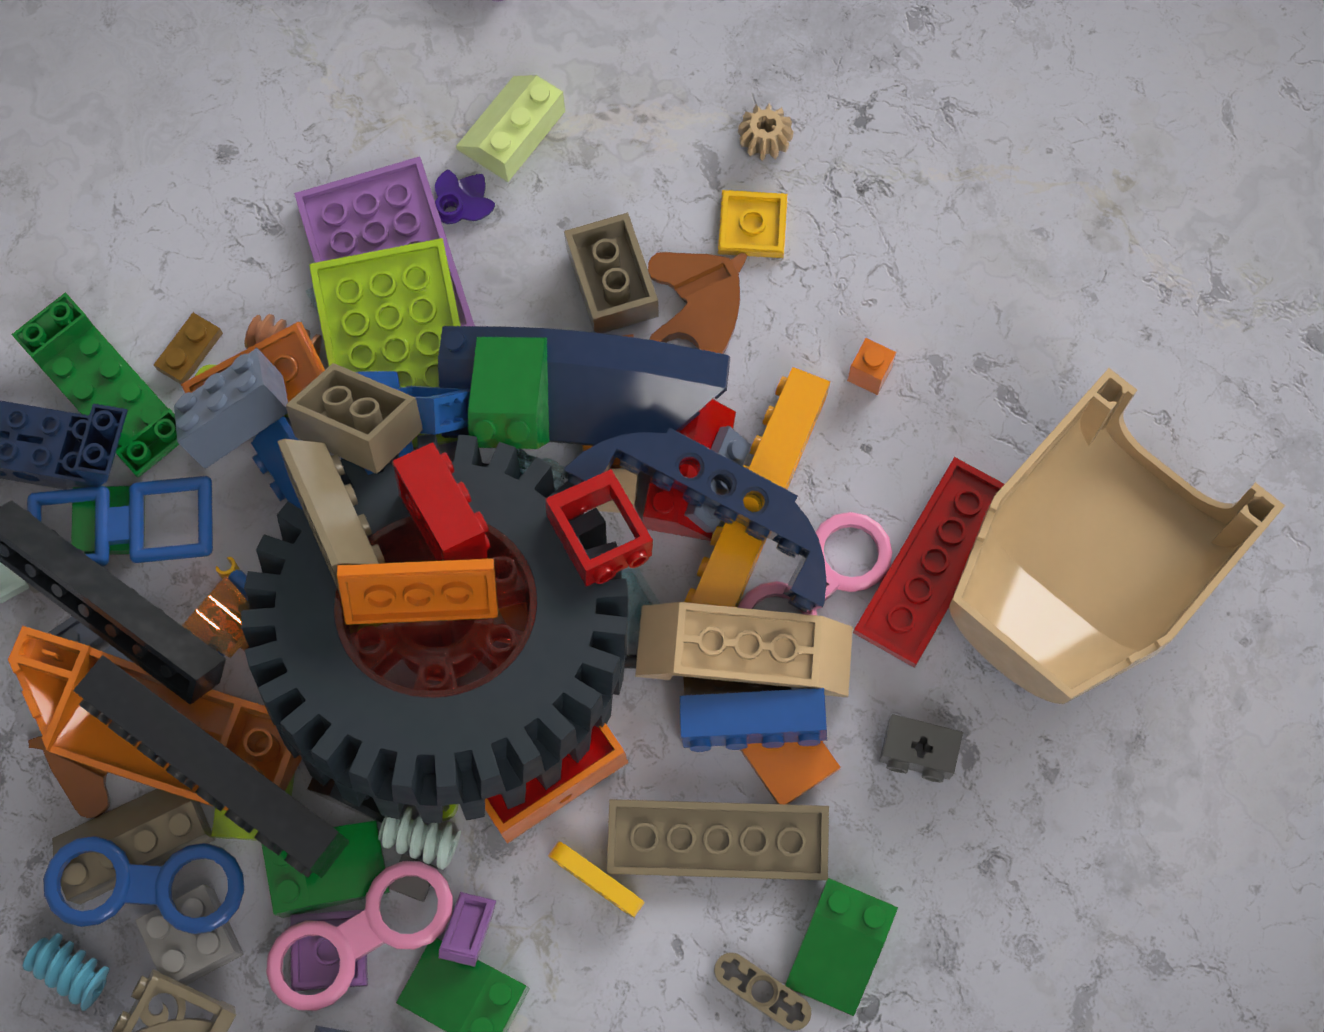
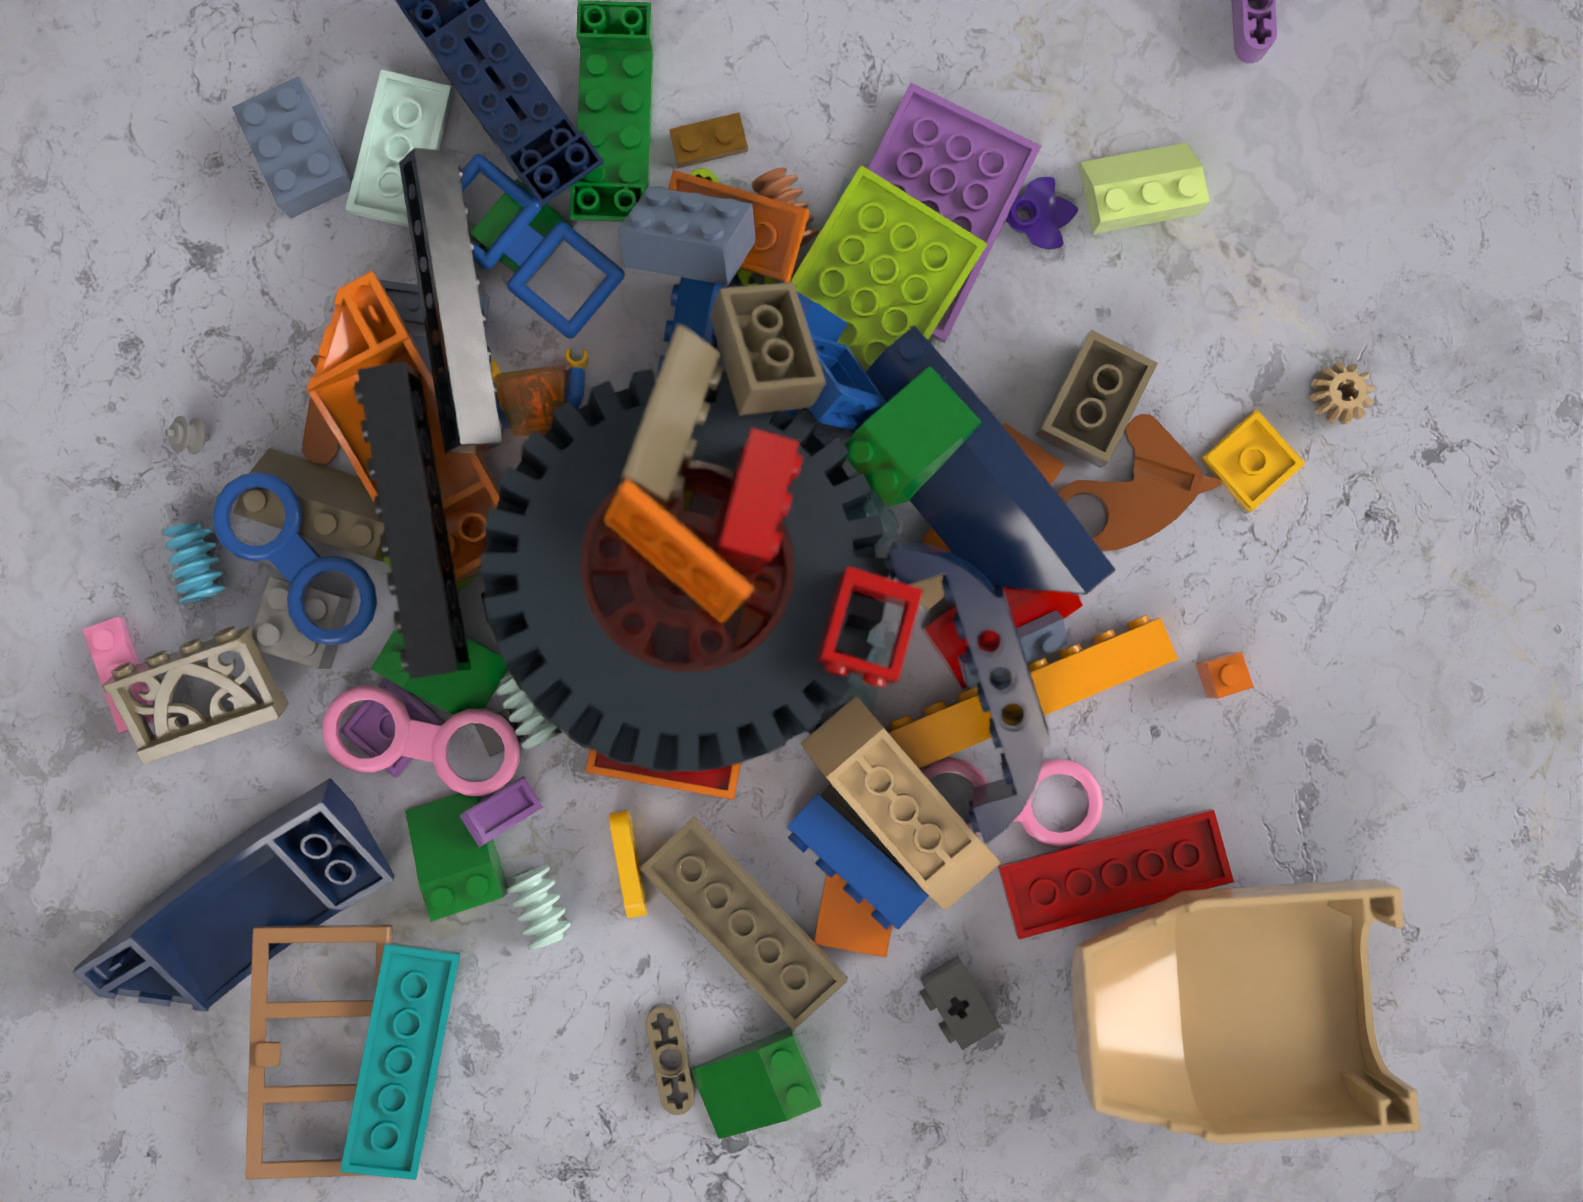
camera: 45 degrees right, 15 degrees up
(560, 973) = (539, 907): none -> light aqua piece

